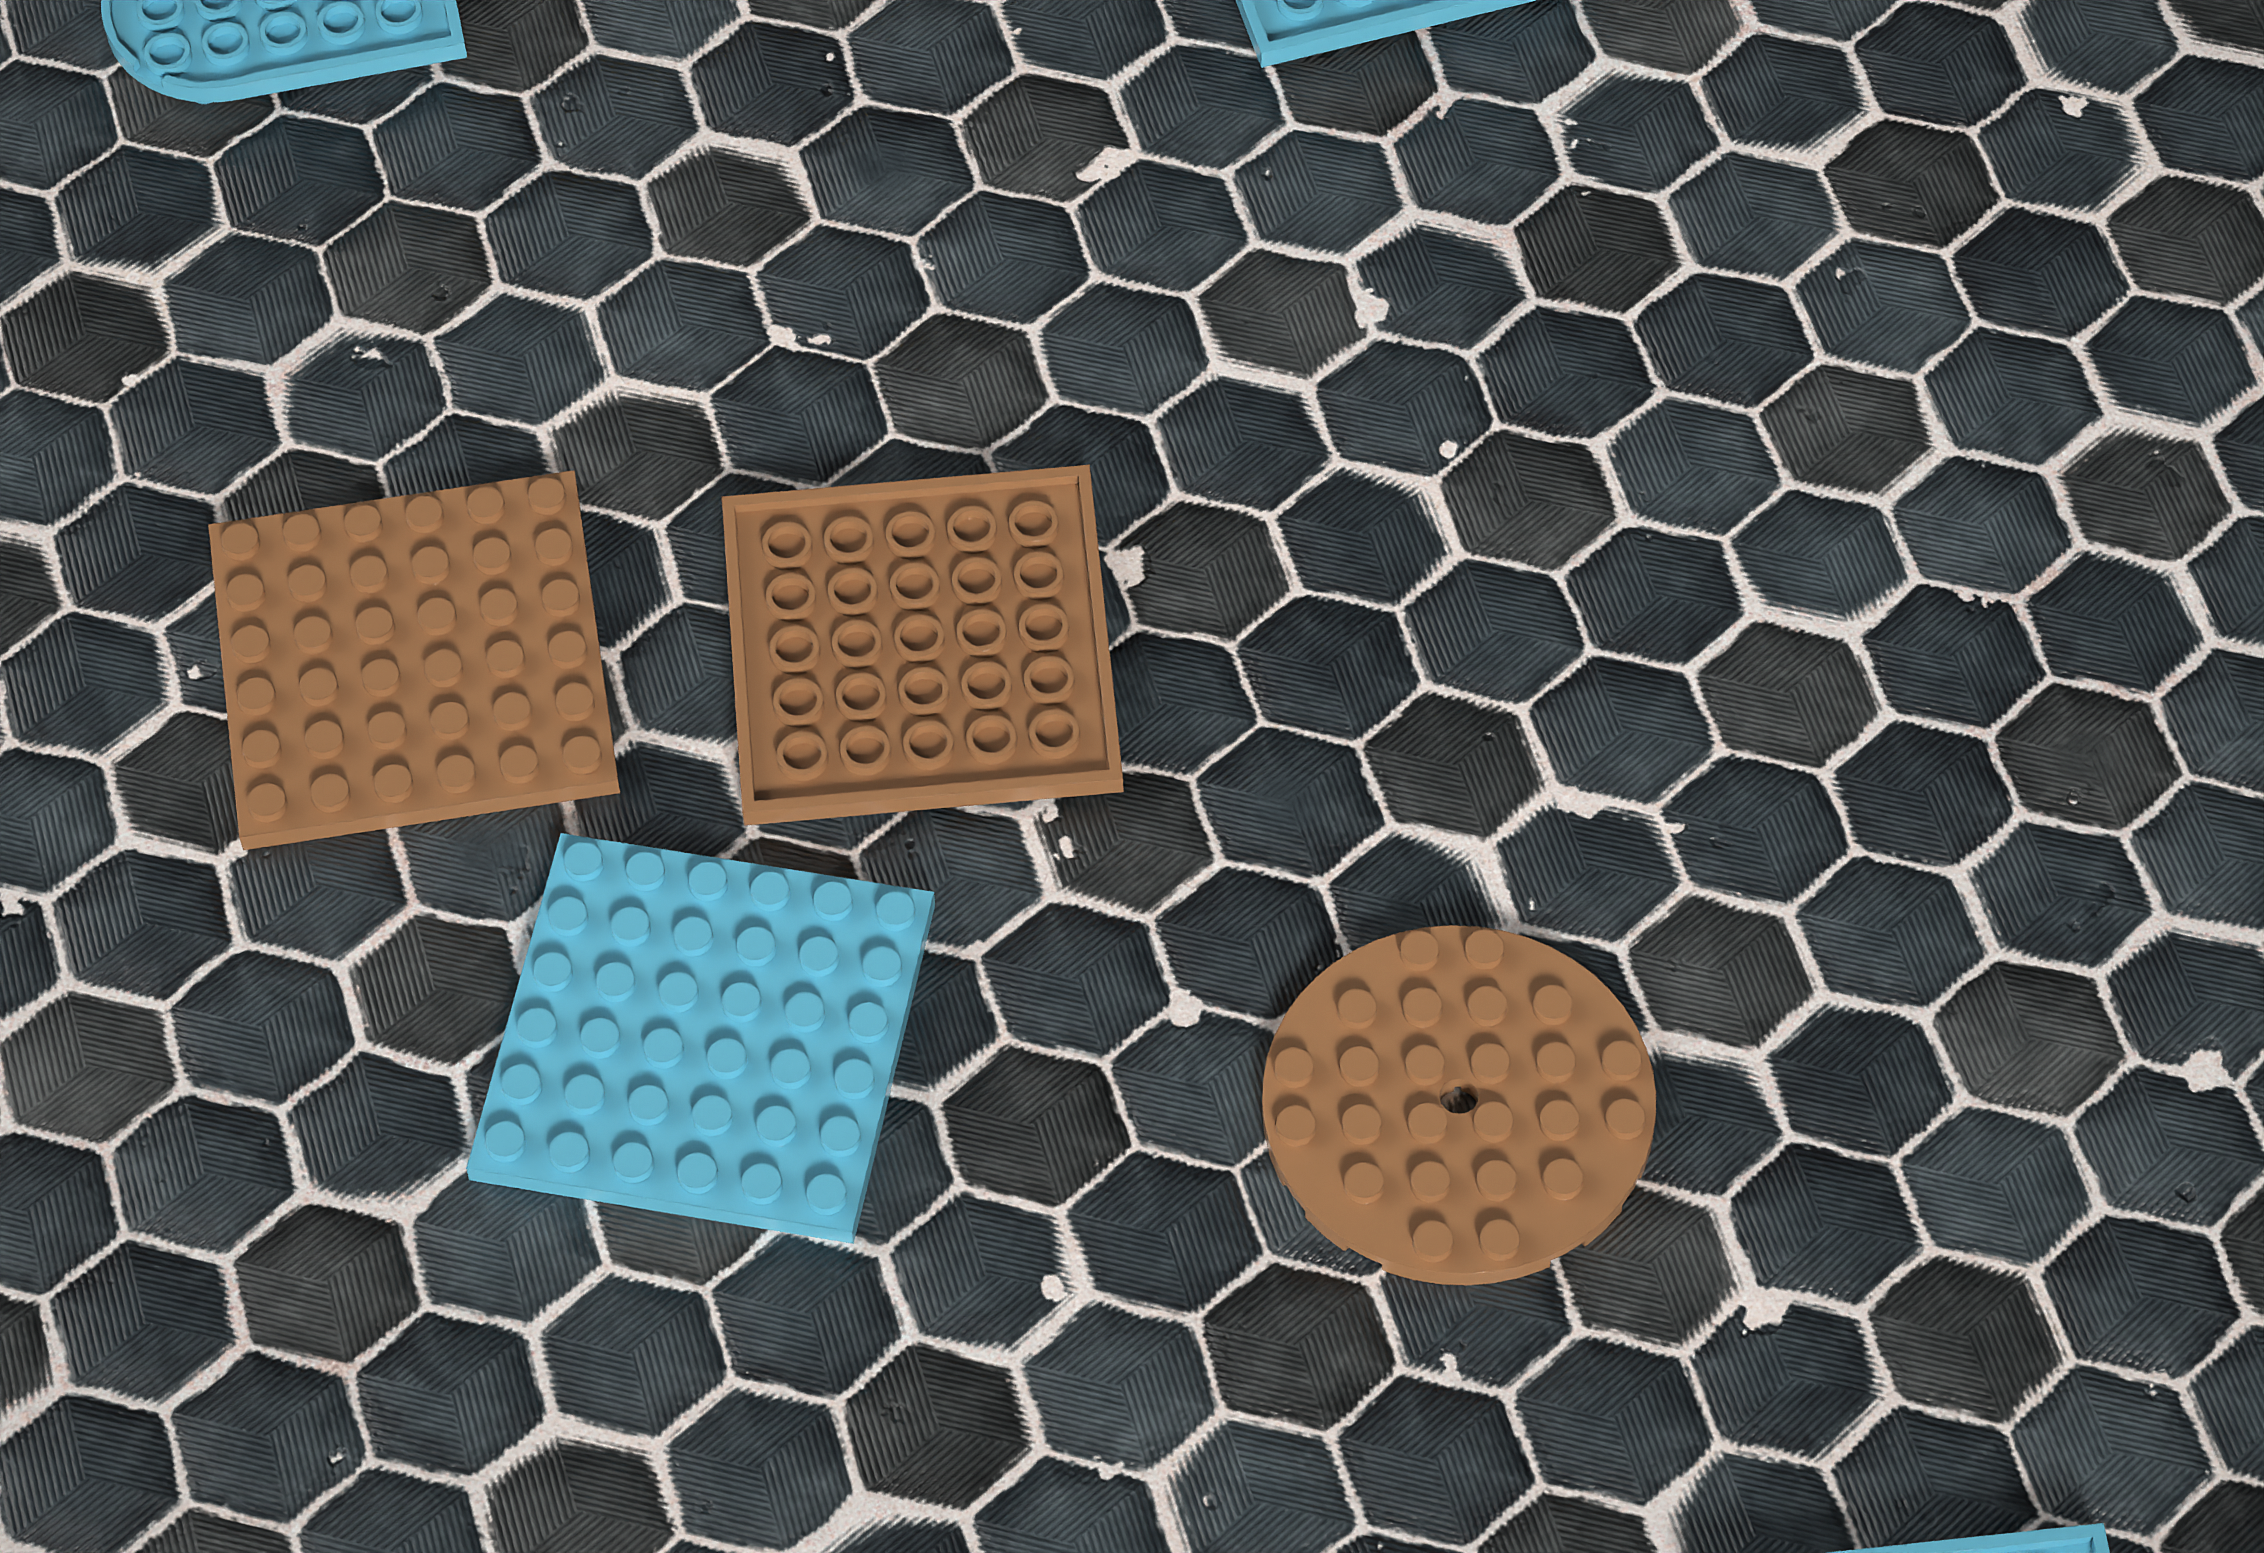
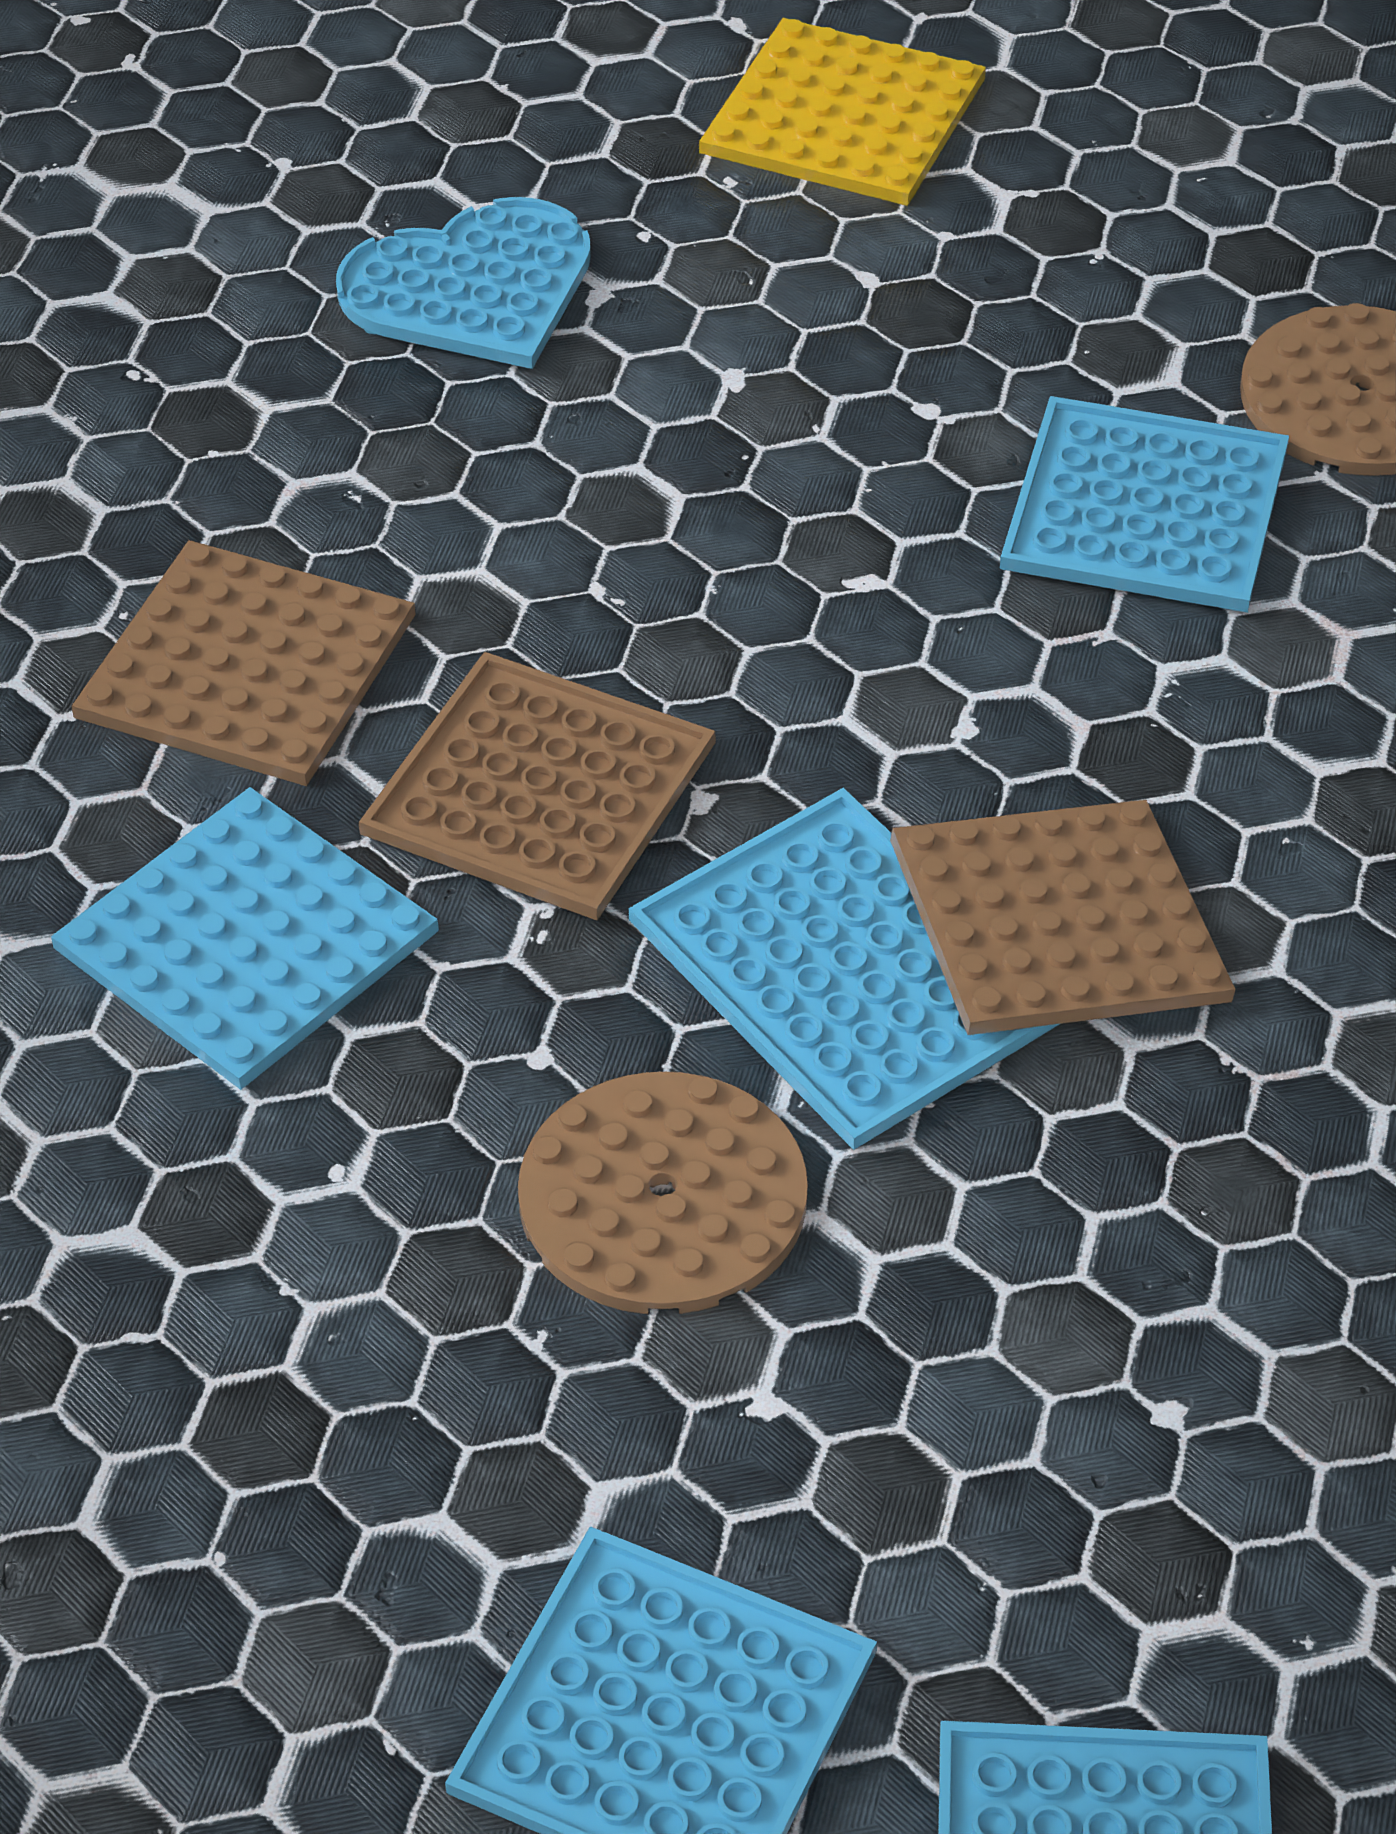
camera: 30 degrees right, 10 degrees down
(1465, 697) = (825, 968): none -> medium azure plate
(1669, 508) = (1060, 917): none -> medium nougat plate

